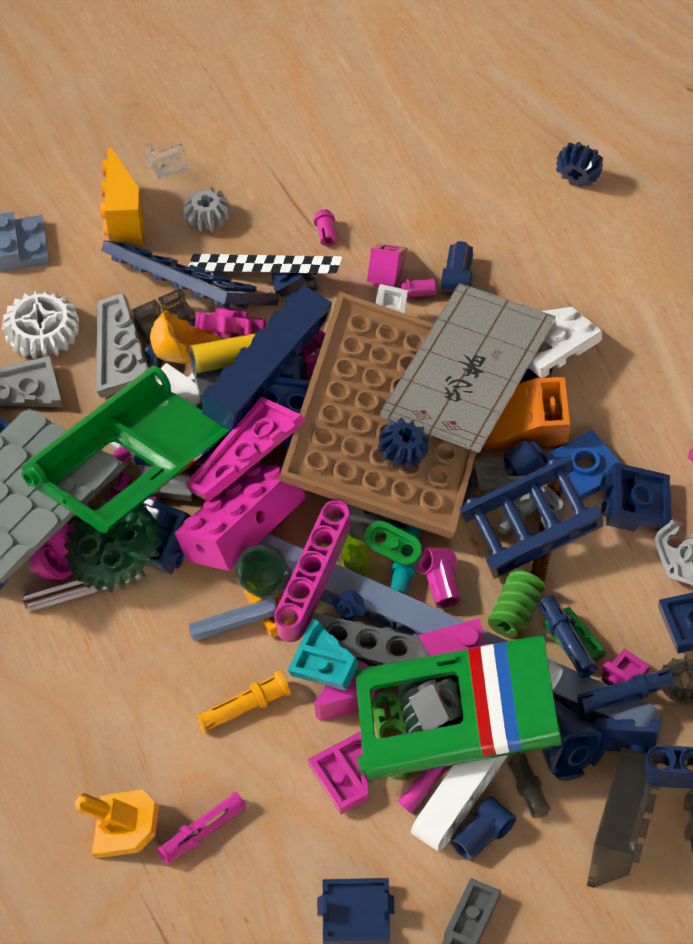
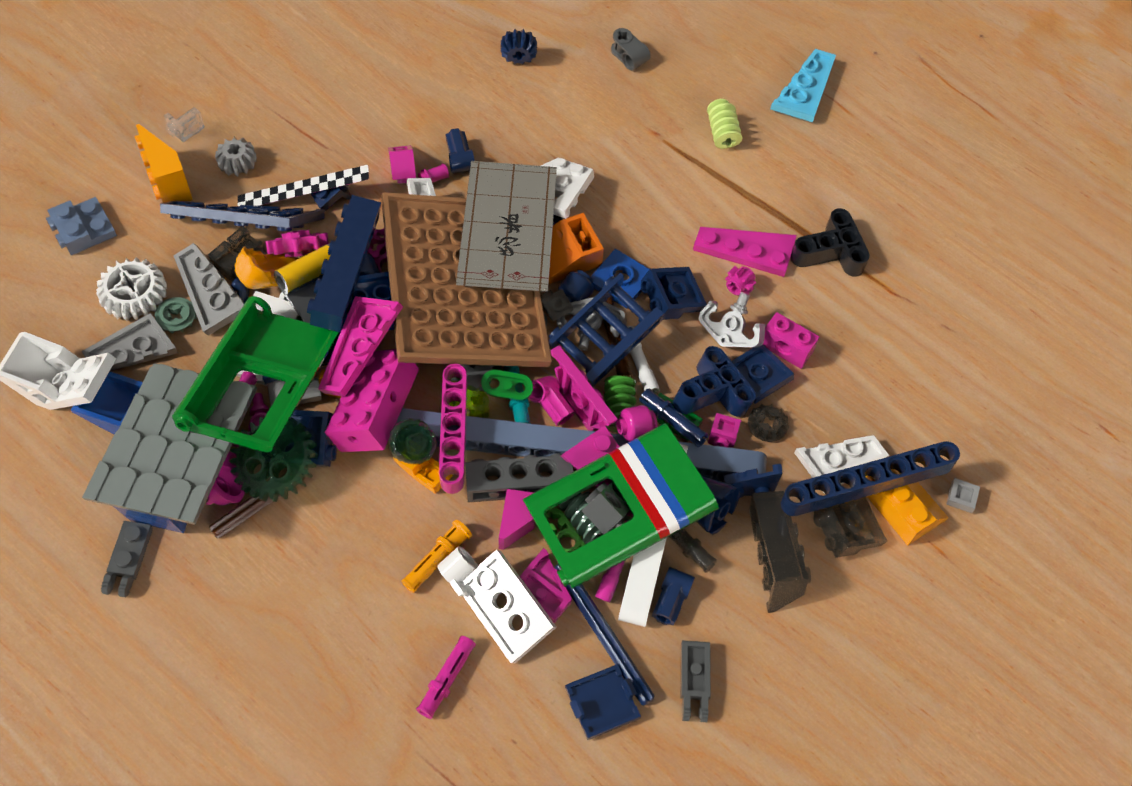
camera: 30 degrees left, 5 degrees up
(79, 356) = (175, 306): none -> sand green gear
(123, 821) = (378, 696): light orange piece -> none
(233, 619) = (398, 488): sand blue axle -> none
(277, 747) = (481, 587): none -> white hinge
(323, 659) = (492, 499): teal wing -> none
(325, 223) = (338, 143): dark pink pin -> none
(349, 605) = (492, 446): dark blue plate -> none
(393, 855) = (610, 642): none -> dark blue axle
(403, 443) = (486, 301): dark blue gear -> none
(470, 575) = (579, 394): none -> dark pink wing
(517, 624) = (636, 422): none -> dark pink head
(563, 582) = (645, 373): none -> white piece
(633, 688) = (745, 440): dark blue pin -> none
(641, 615) = (716, 382): none -> dark blue beam

